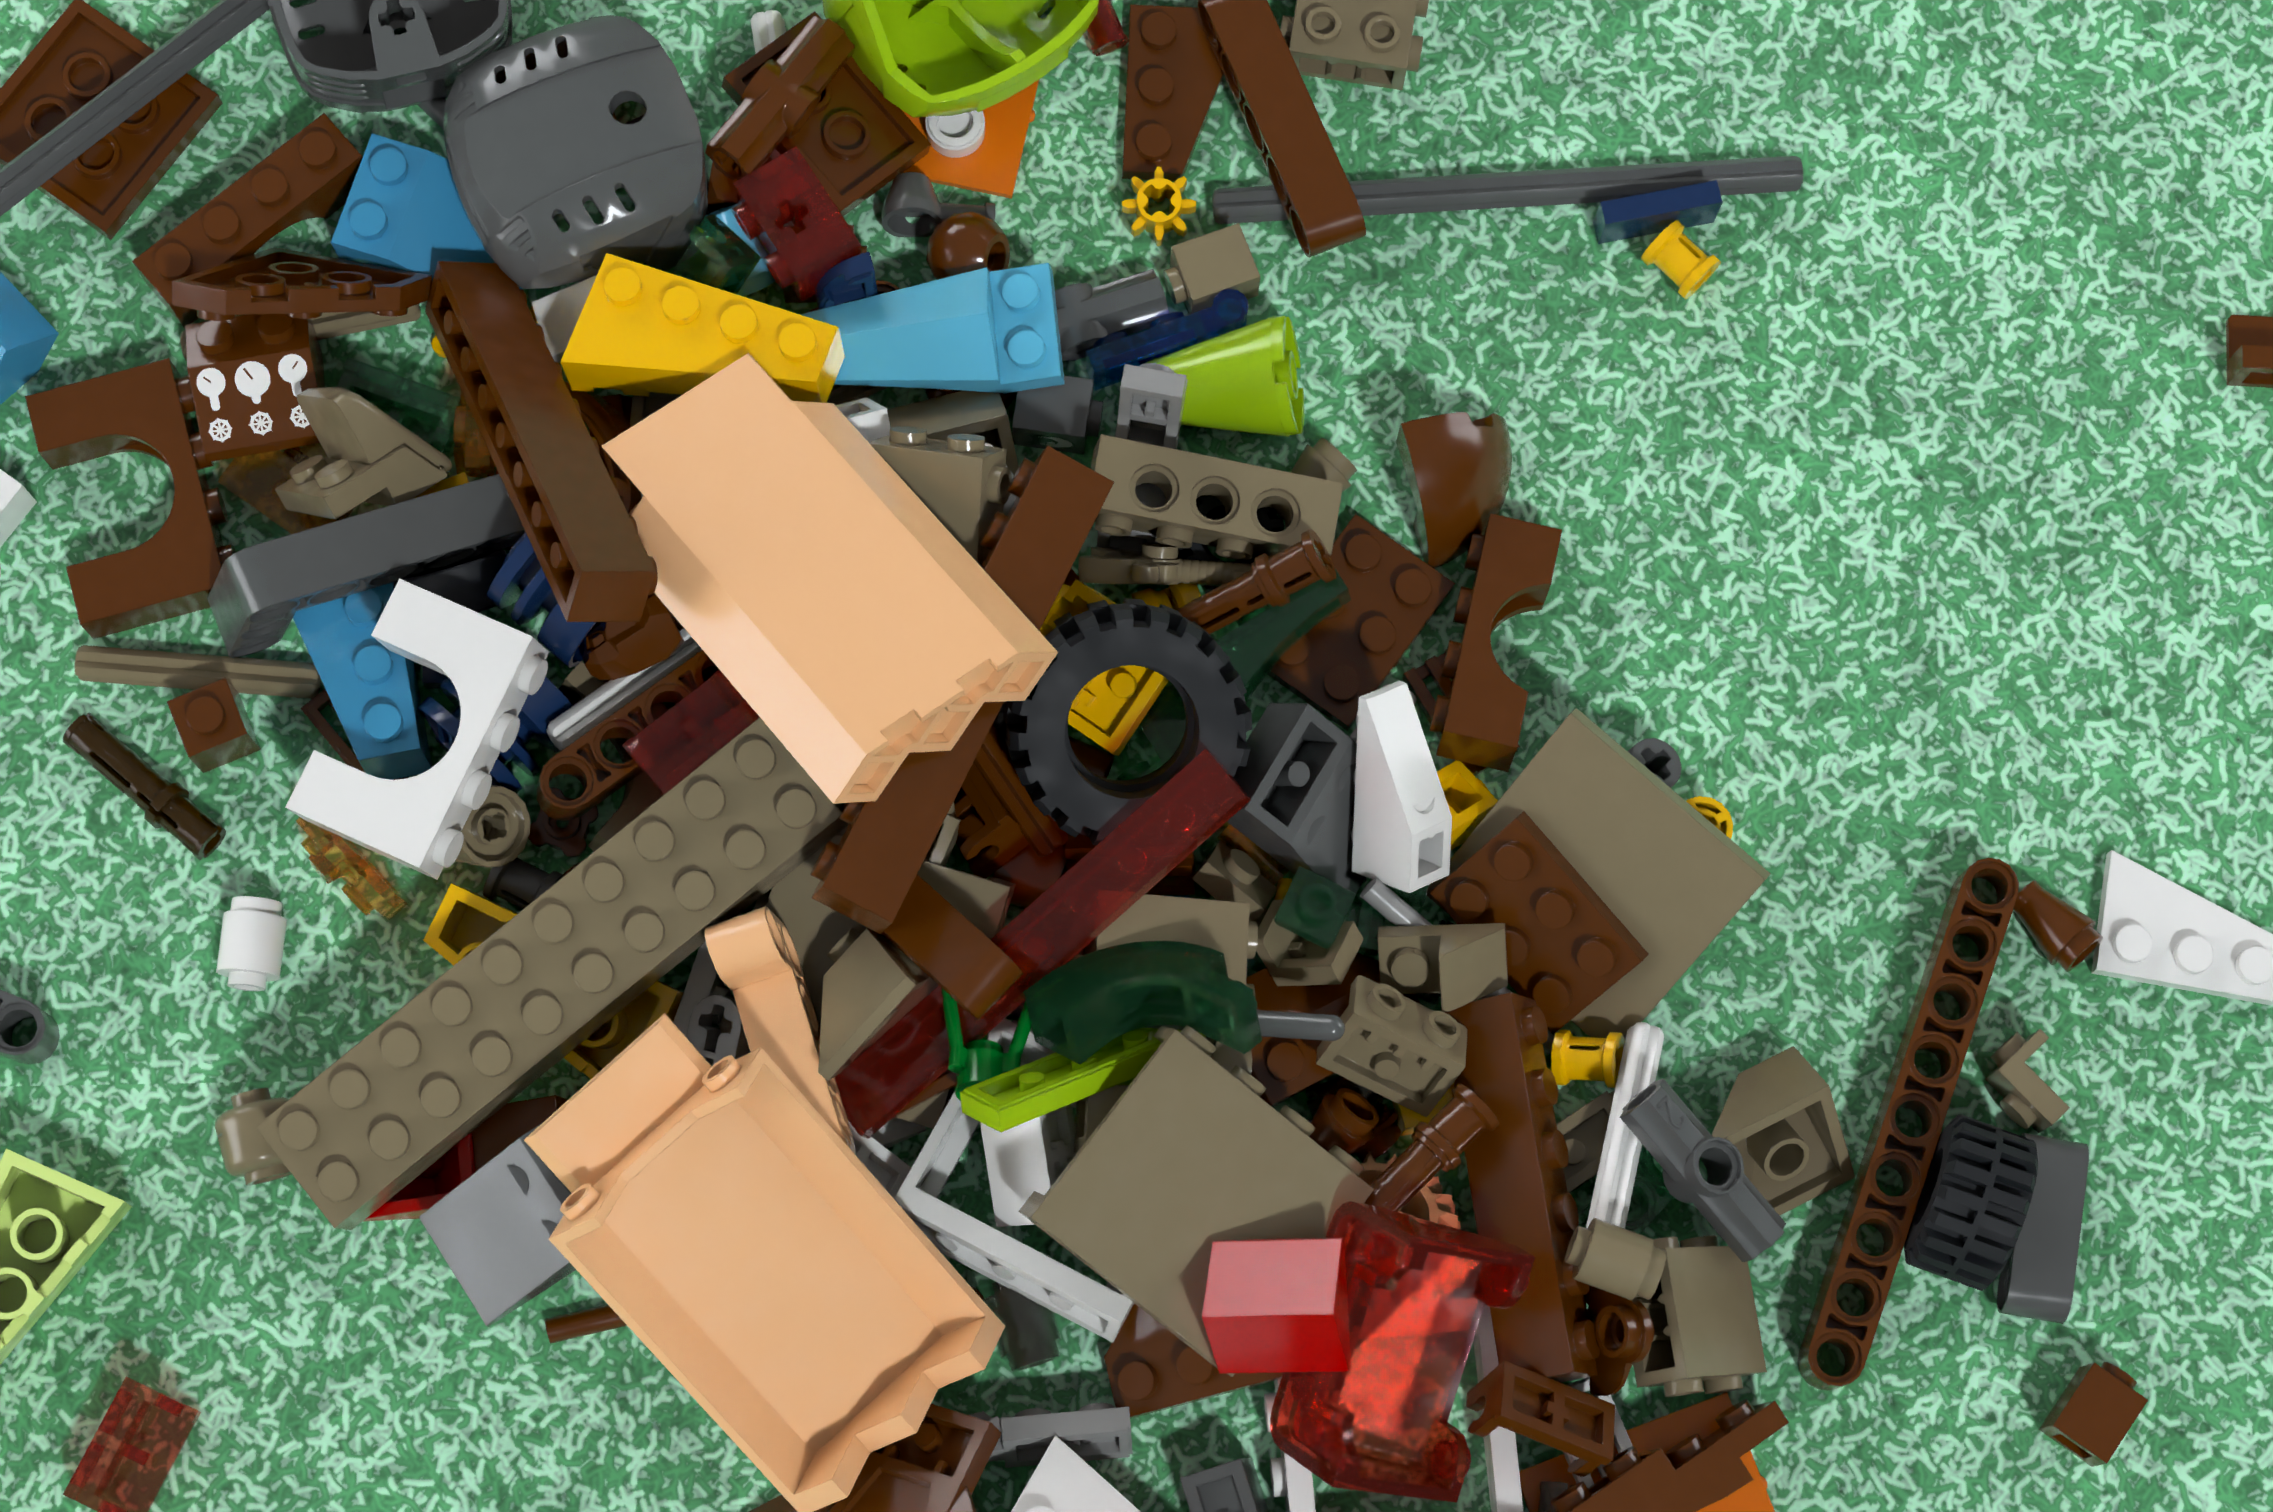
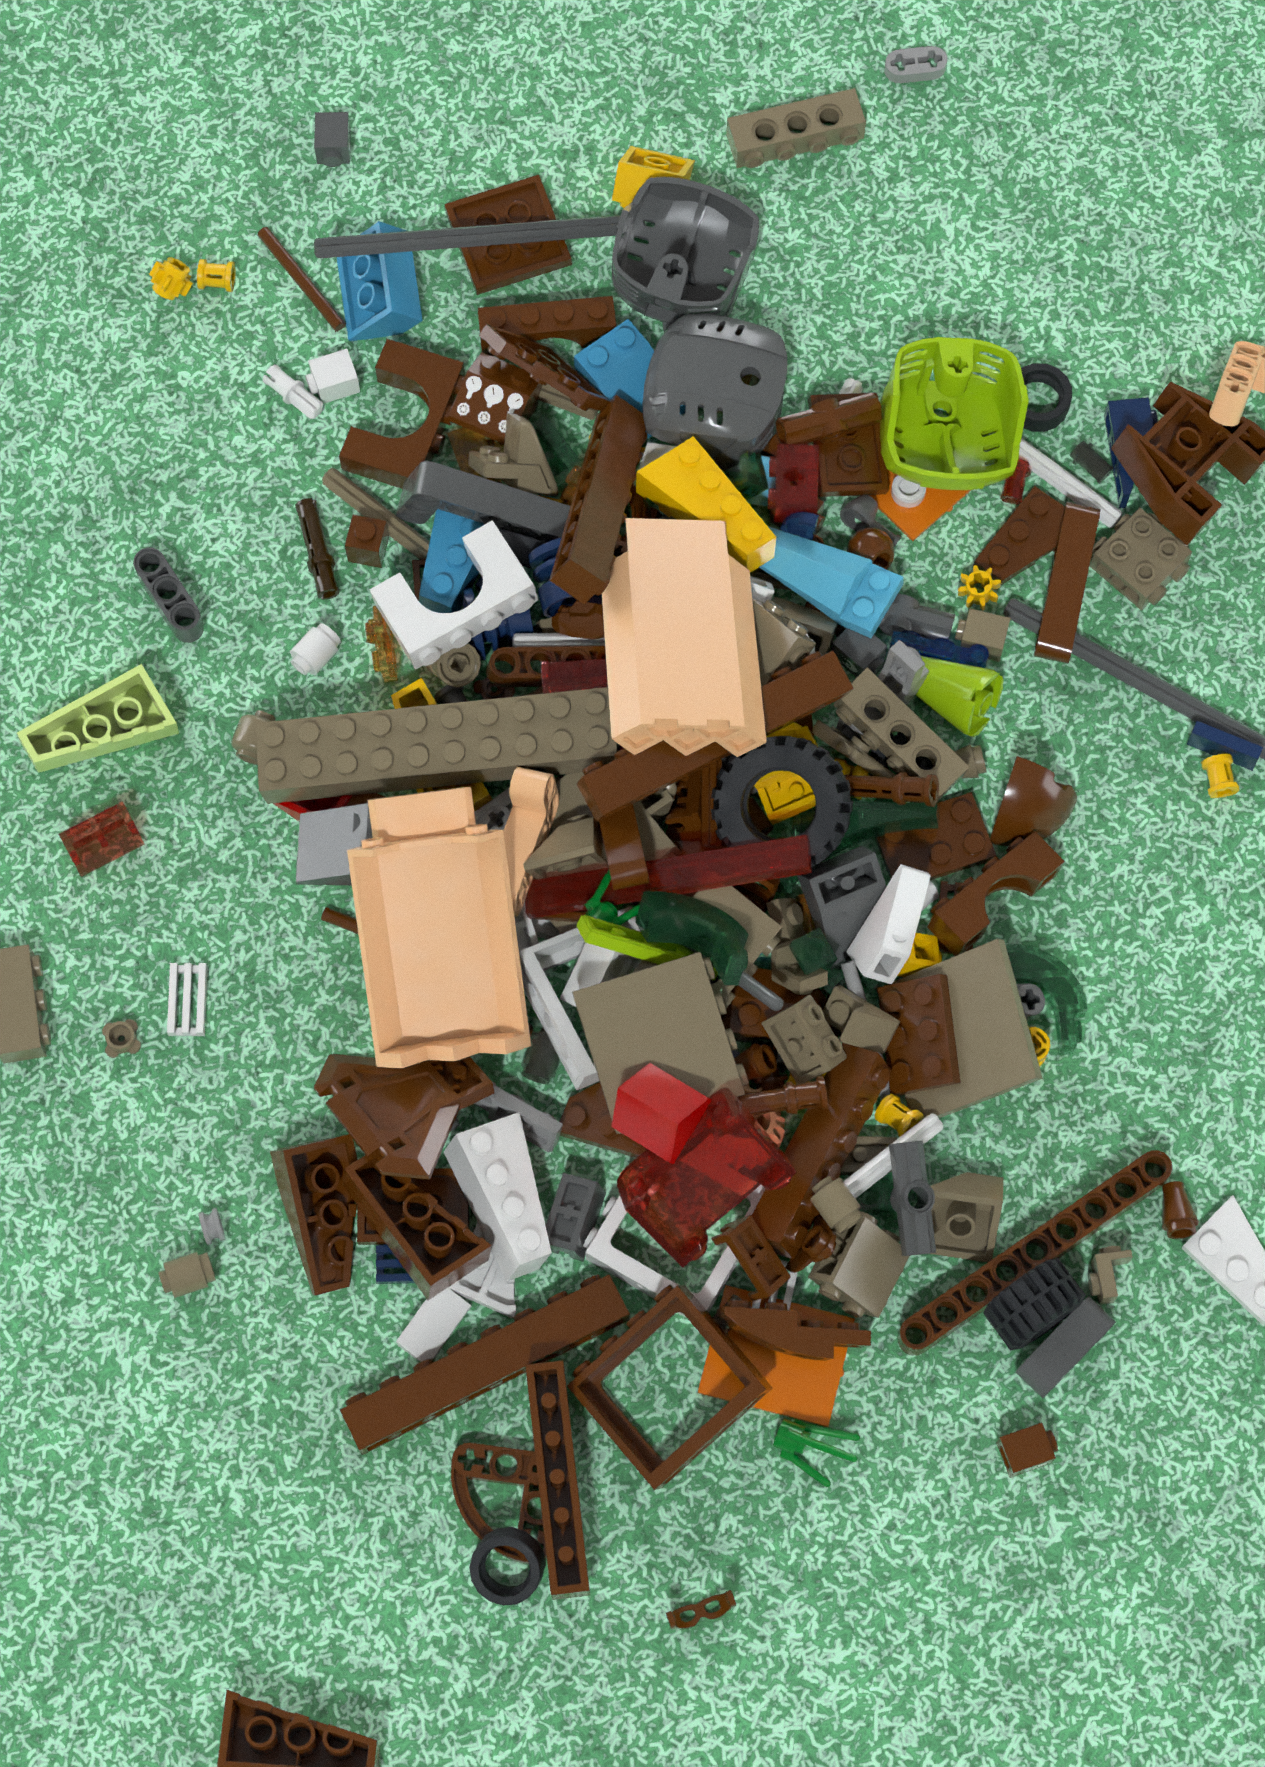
camera: 40 degrees right, 5 degrees down
(1679, 716) = (1059, 988): none -> clear green arch

